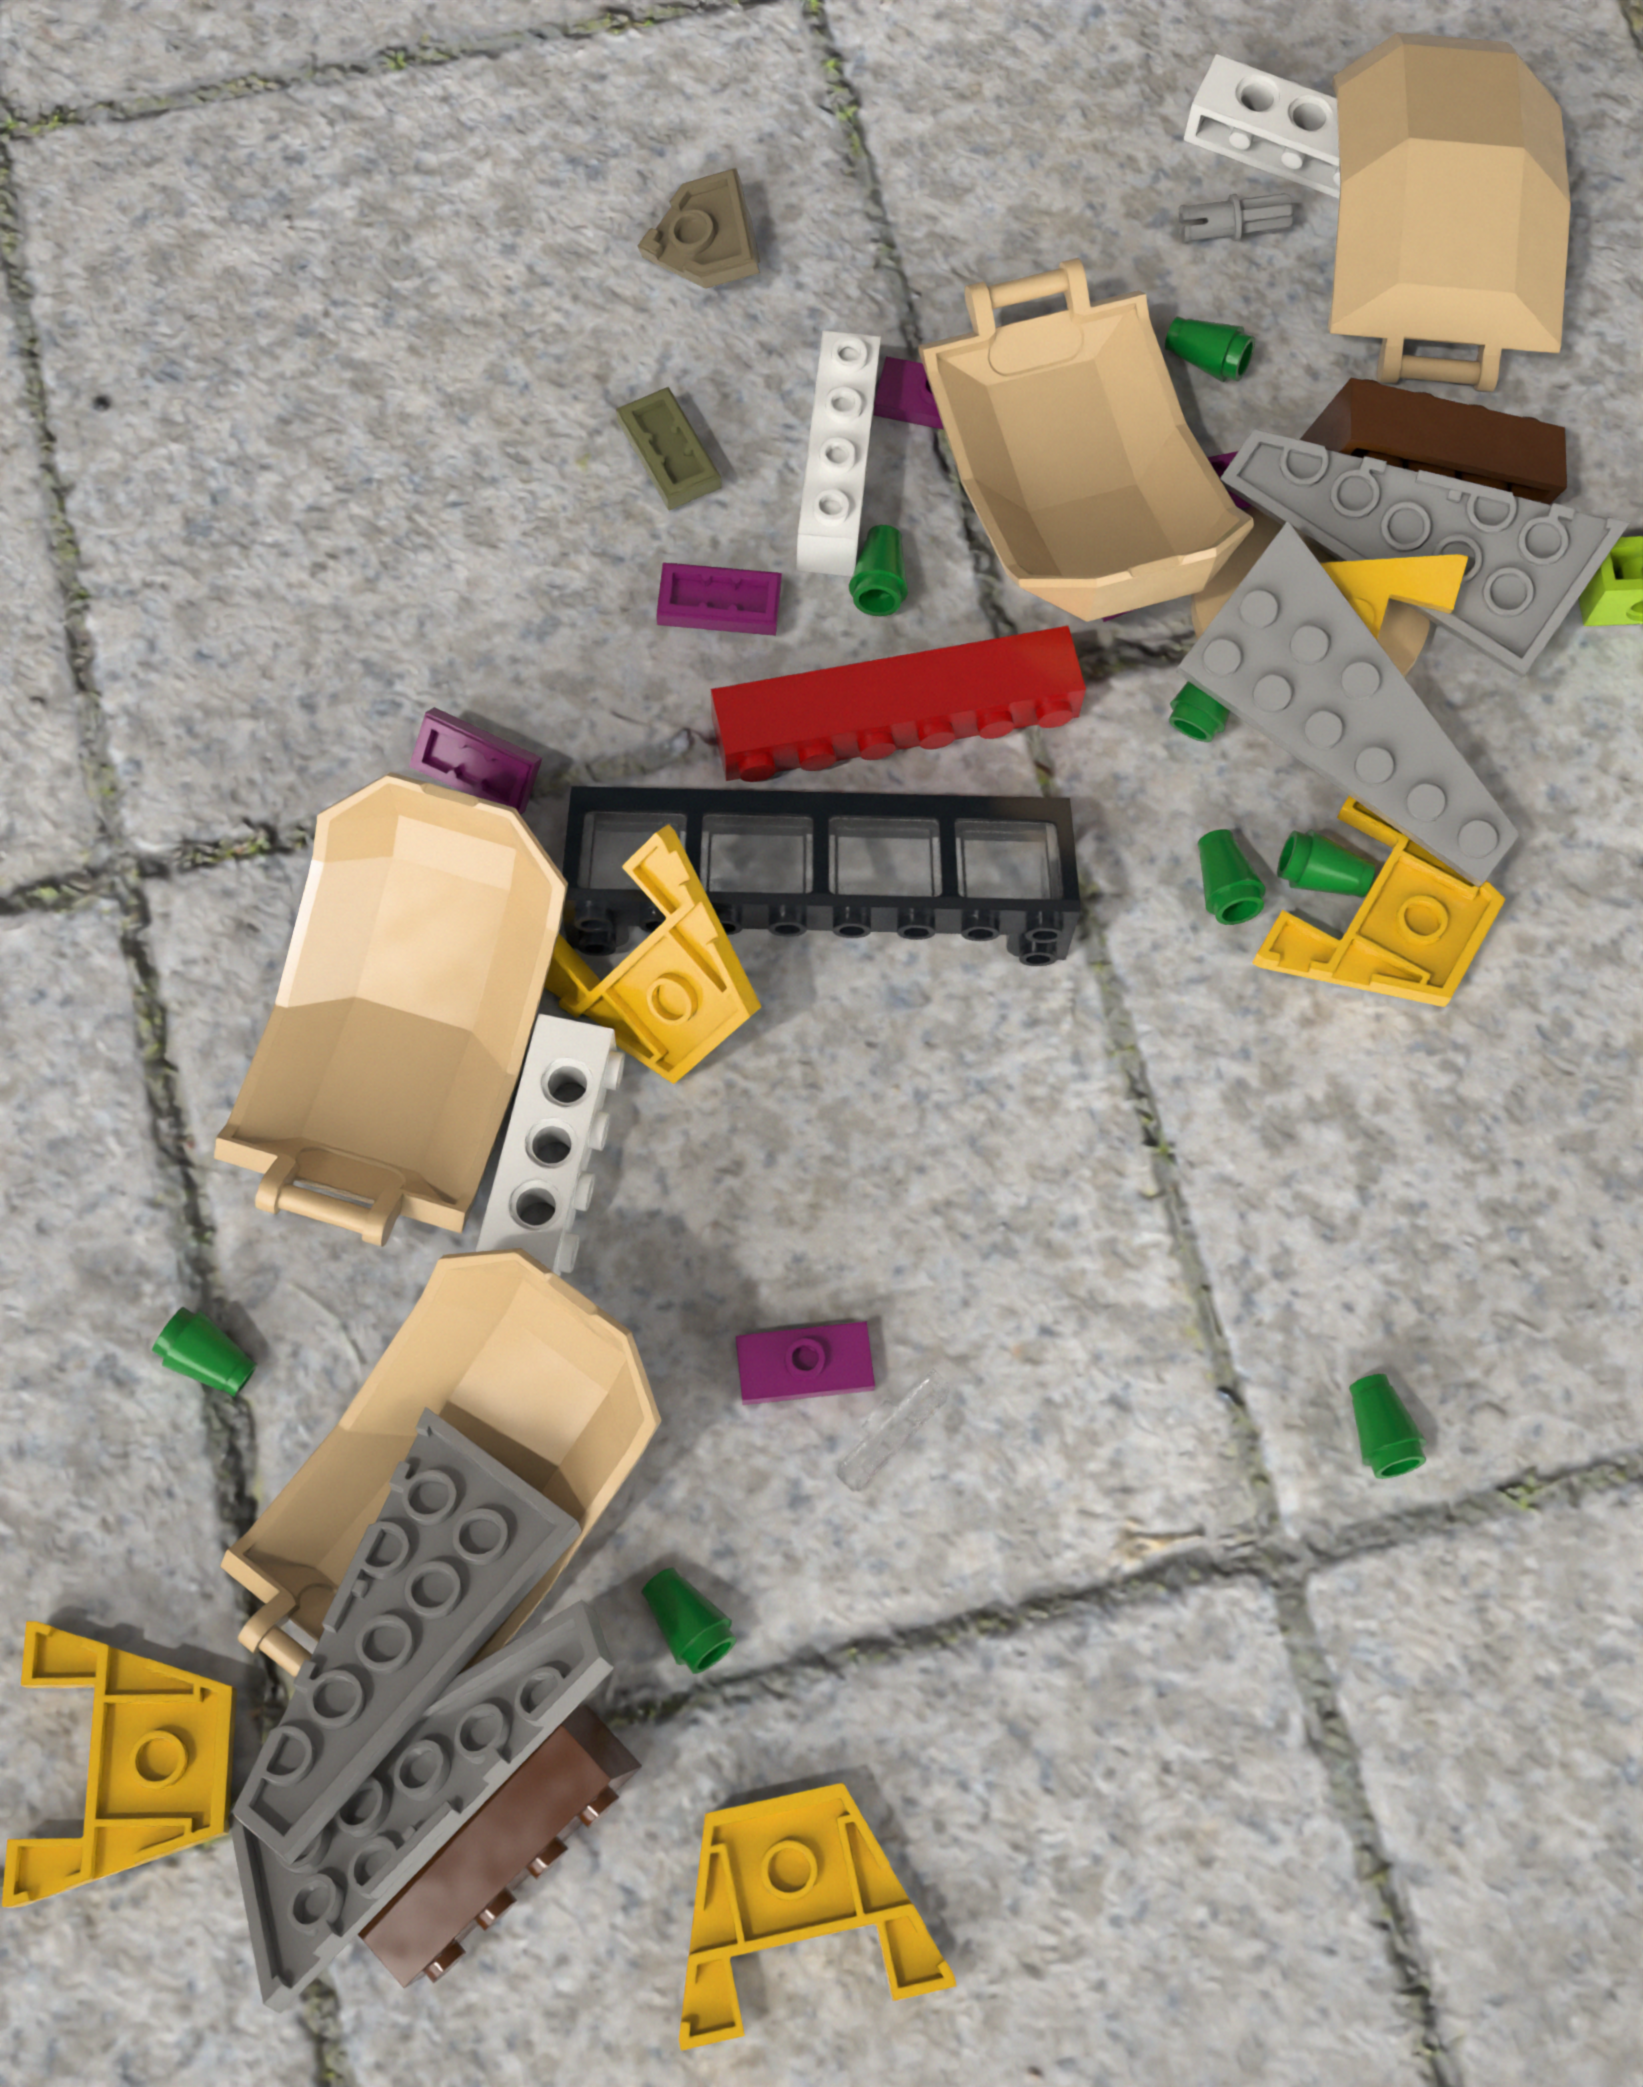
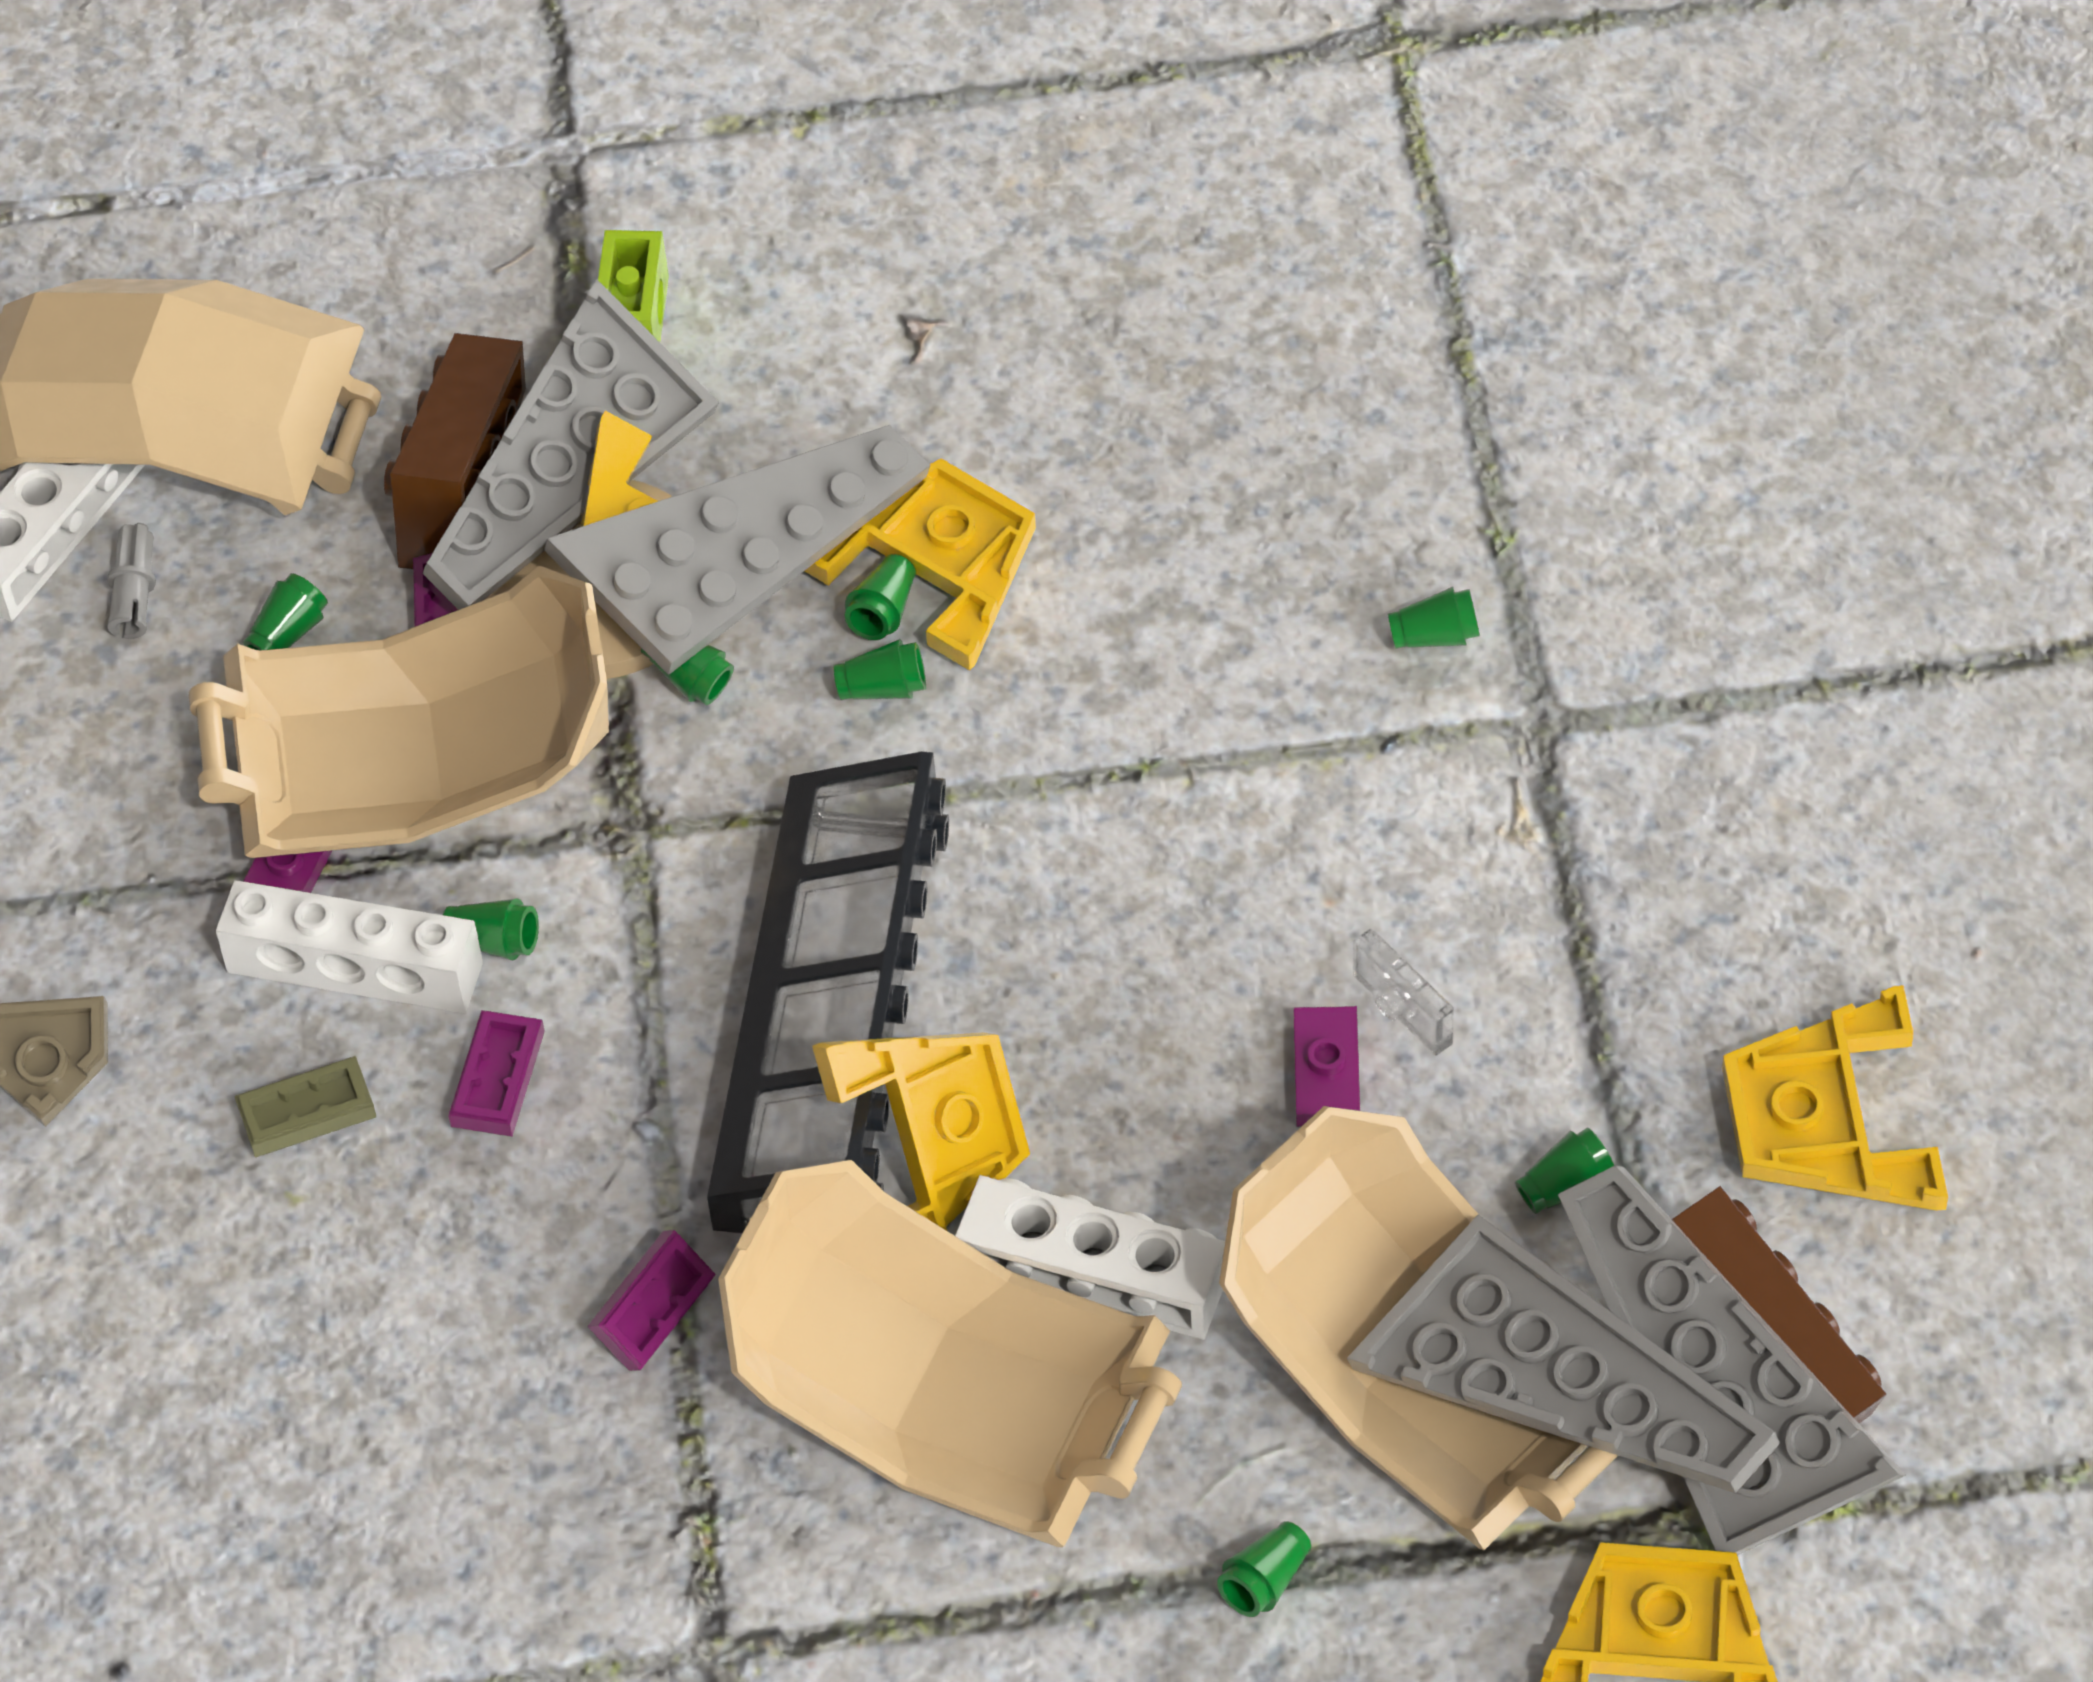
camera: 75 degrees left, 15 degrees down
(897, 704) = (650, 926): red brick -> none

